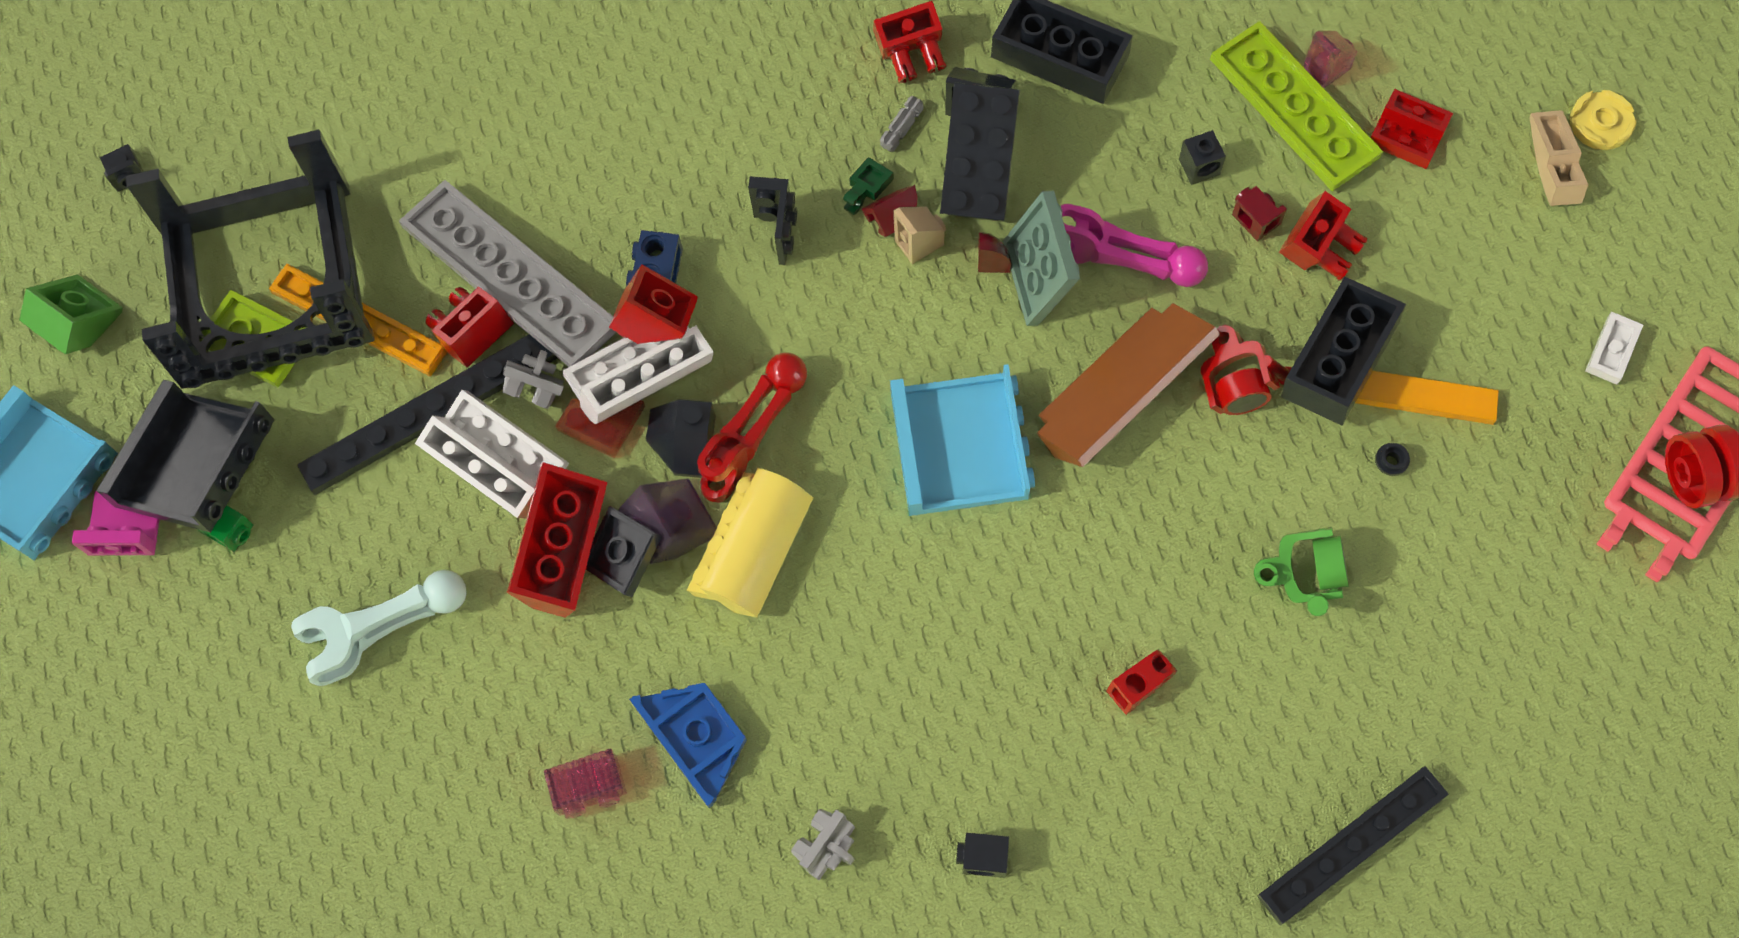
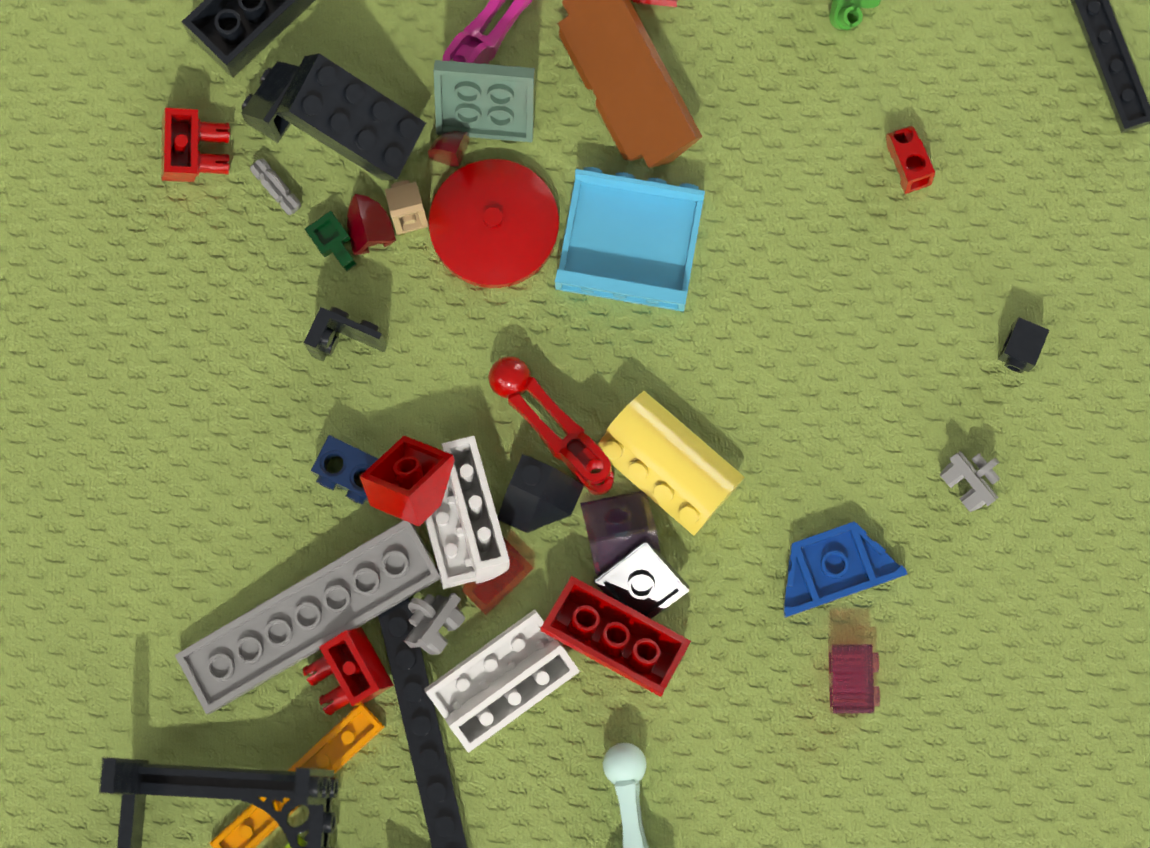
camera: 75 degrees left, 10 degrees up
(934, 317) = (494, 223): none -> red dish

